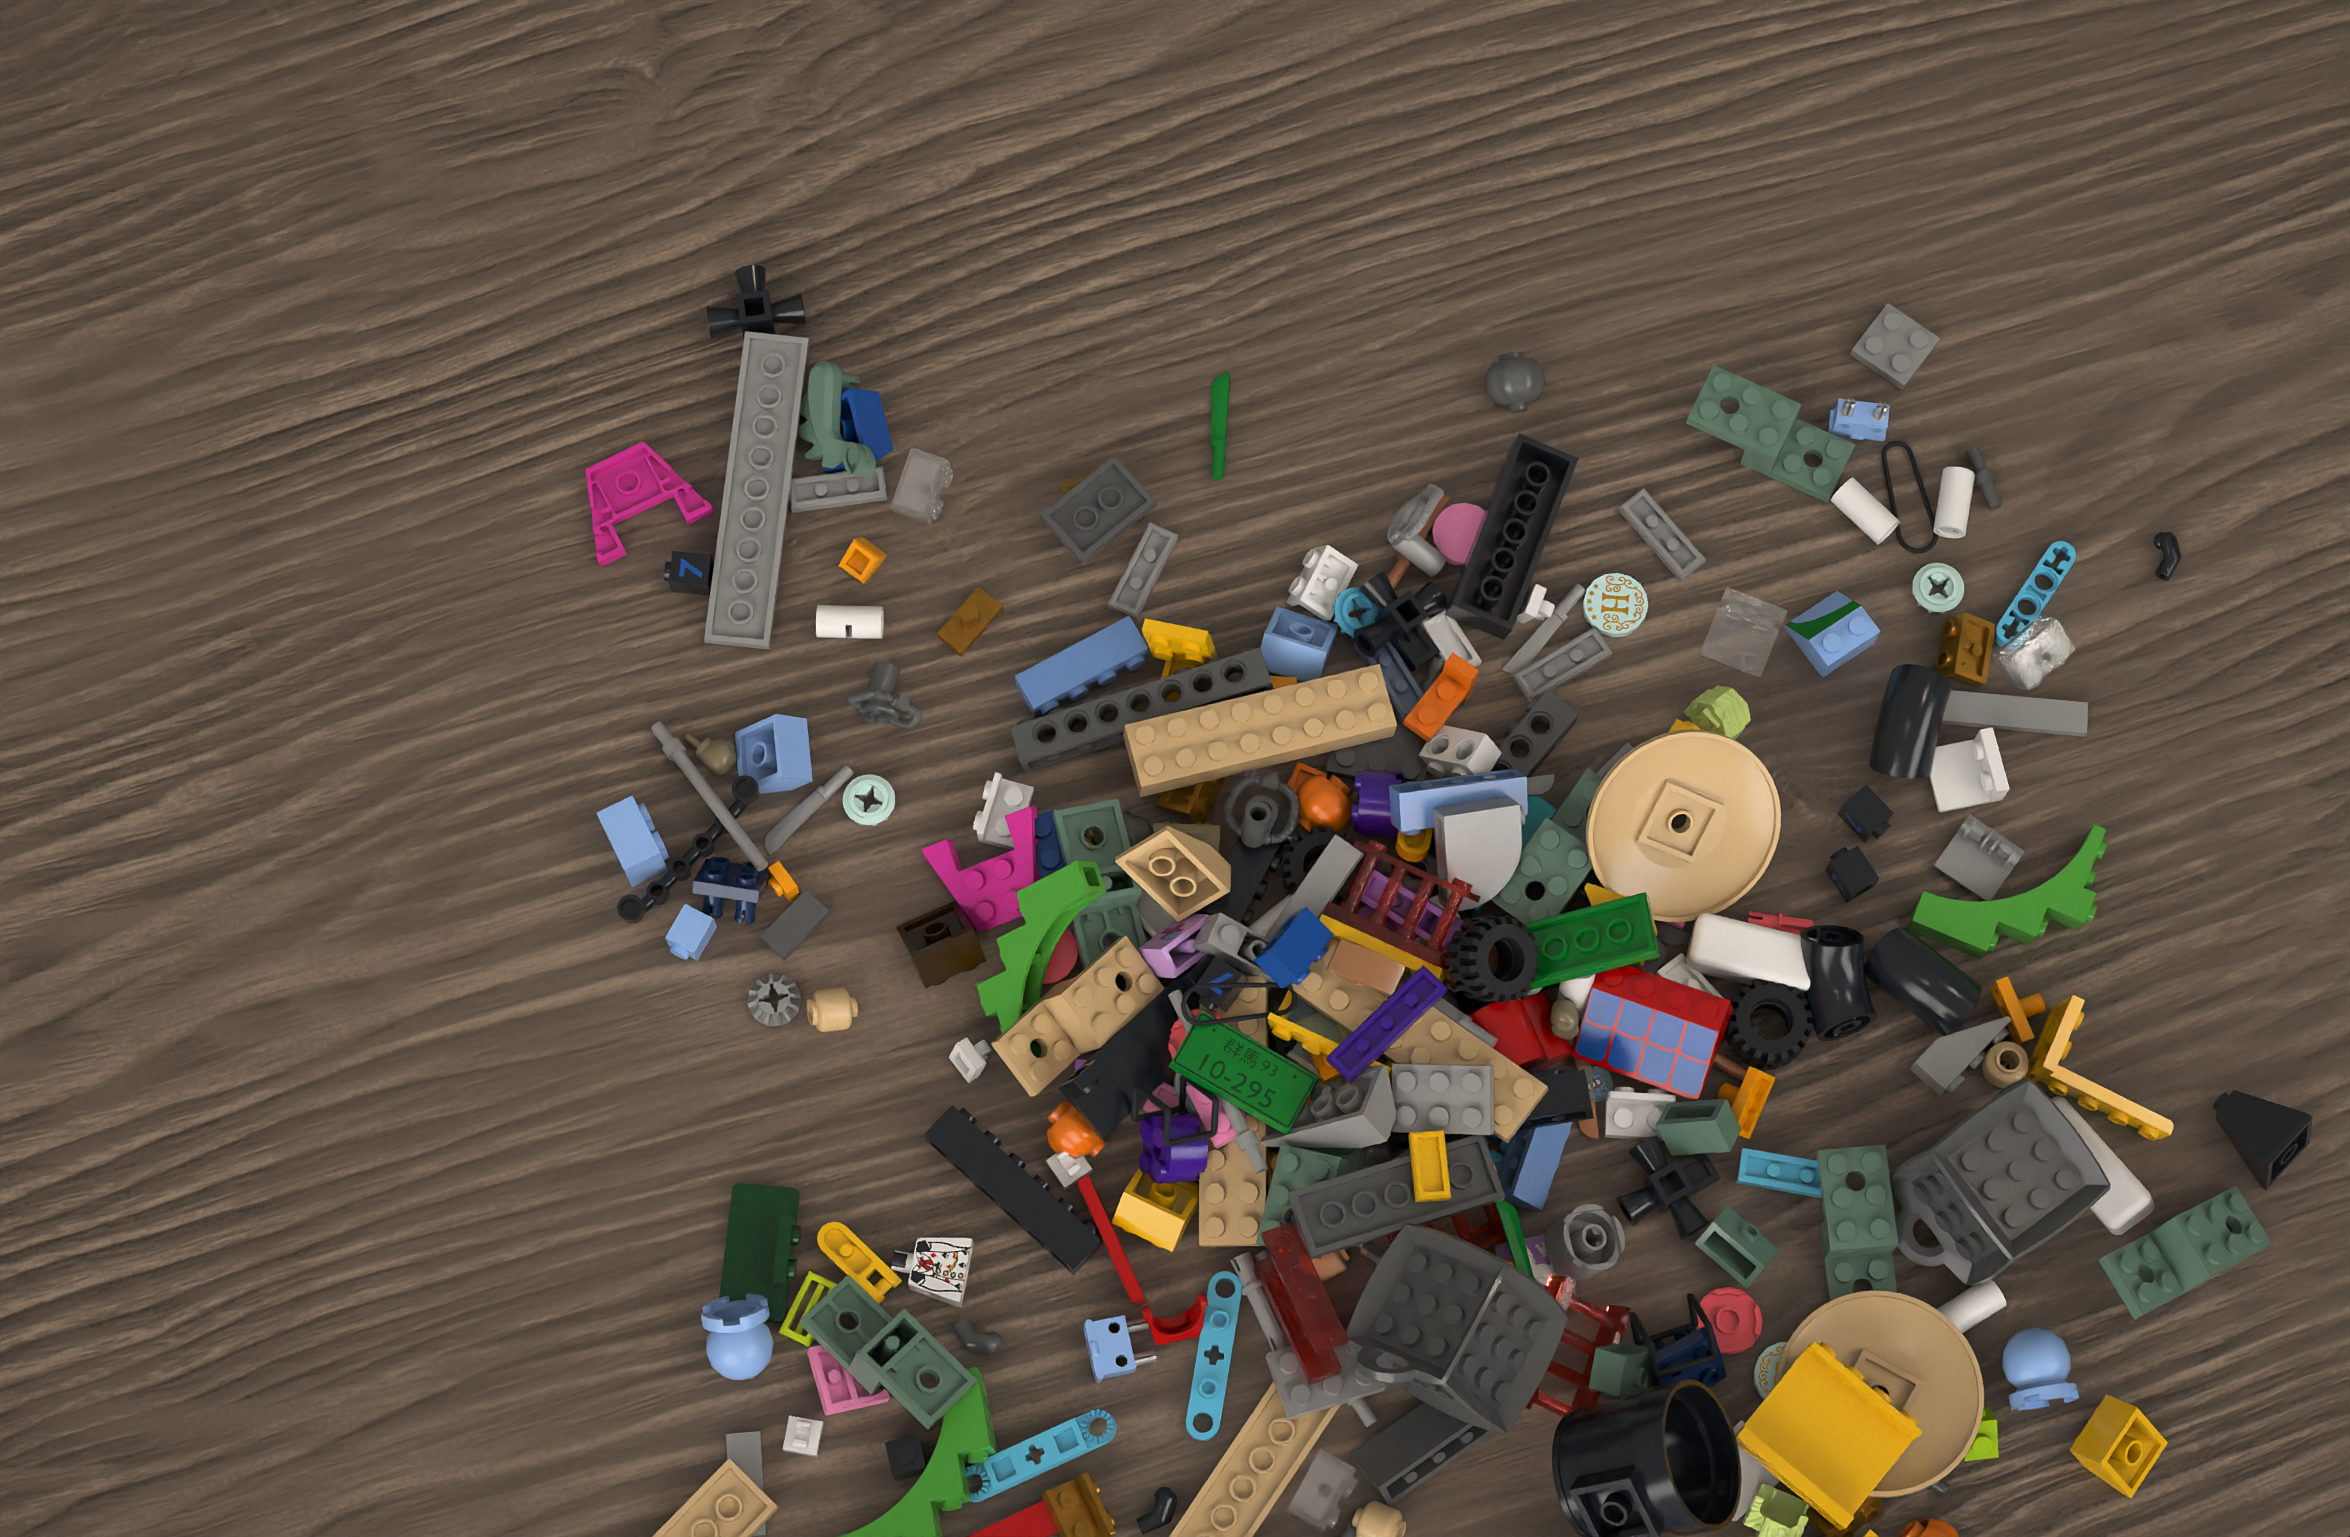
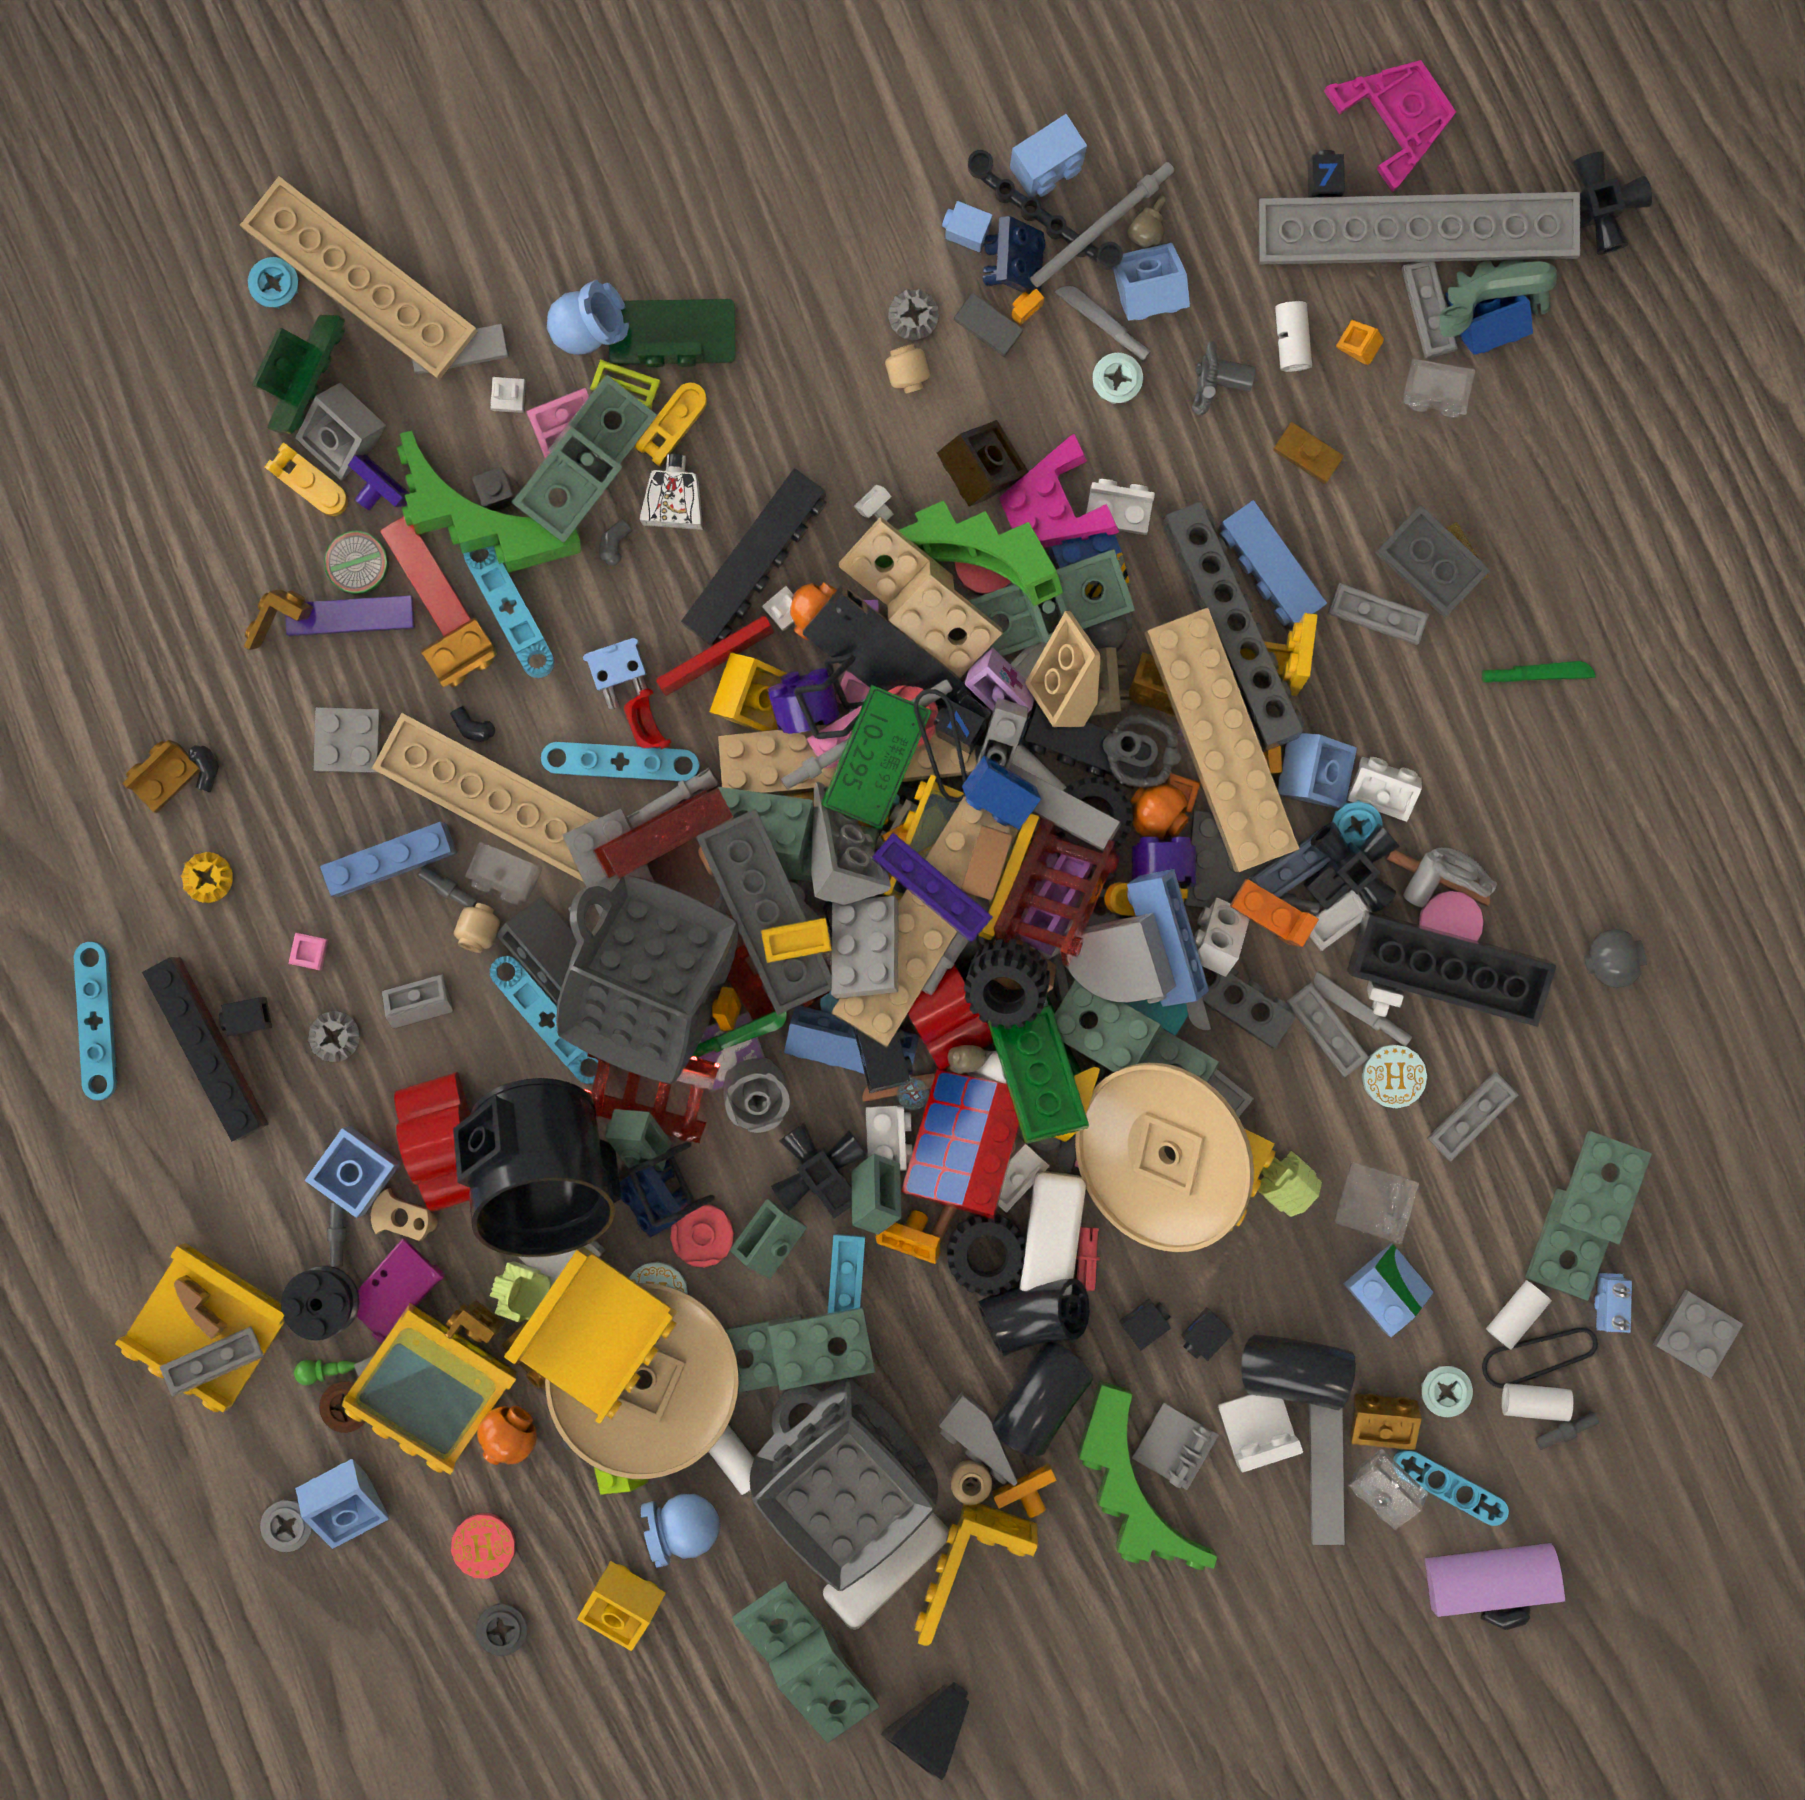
camera: 85 degrees right, 15 degrees up
(1464, 1476) = (531, 1003): none -> medium azure piece
(2130, 562) = (1494, 1580): none -> lavender brick

